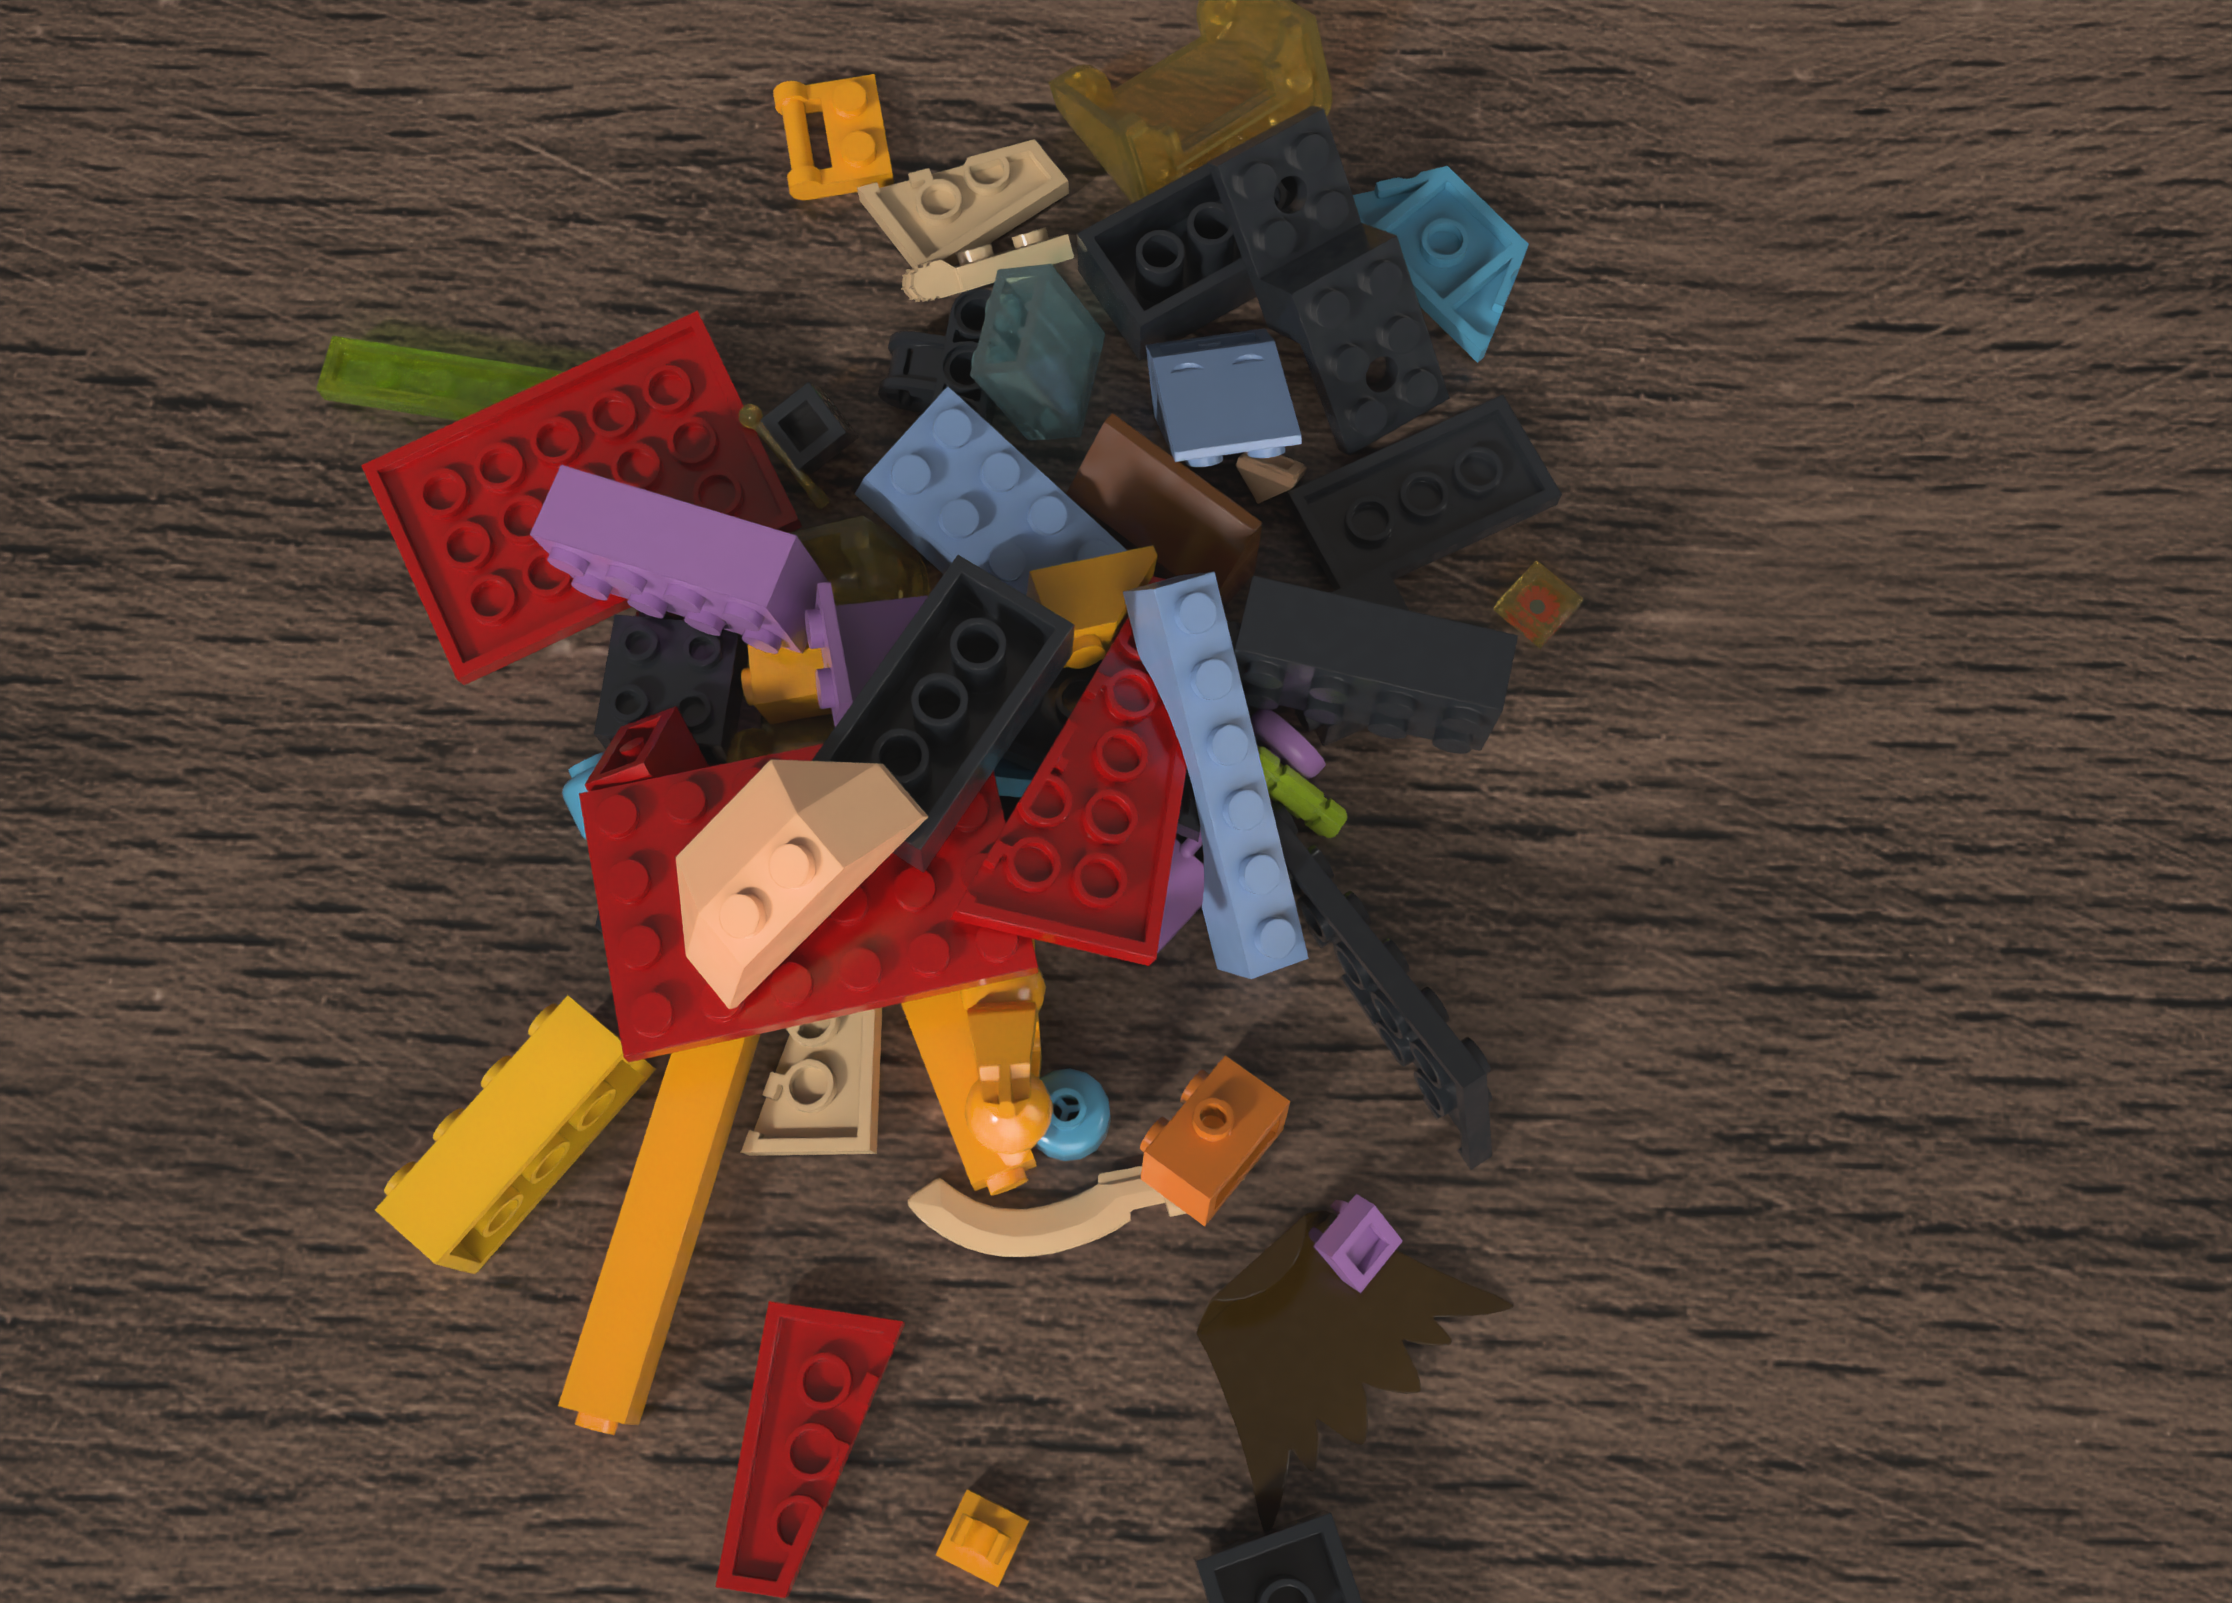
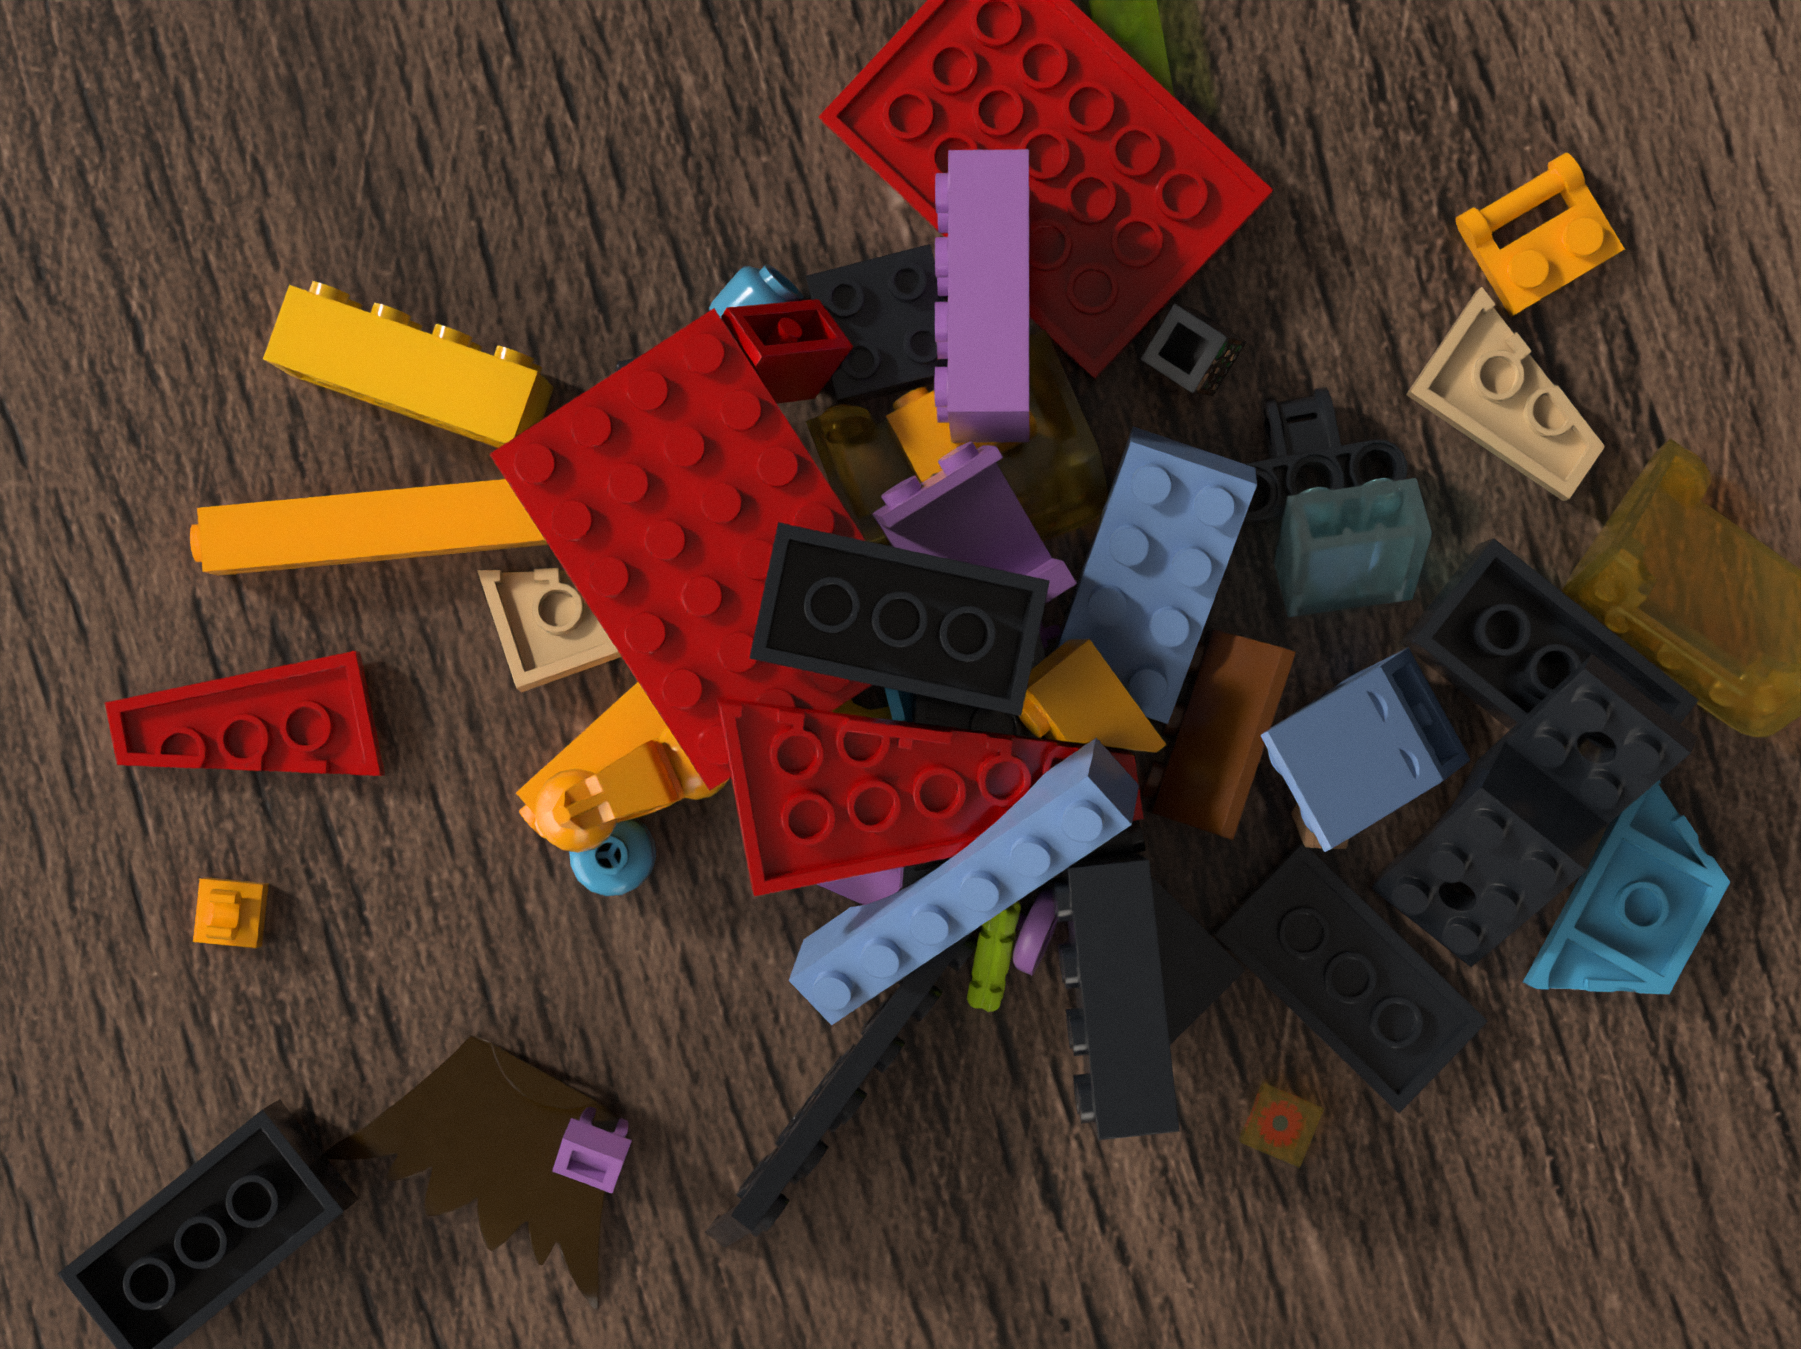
camera: 70 degrees right, 15 degrees up
(750, 417) = (1177, 292): clear yellow hinge -> none
(784, 863) = (697, 539): light nougat wedge -> none
(980, 265) = (1437, 455): tan hinge -> none
(1036, 1229) = (528, 890): tan sword -> none
(1212, 1138) = (637, 994): orange brick -> none

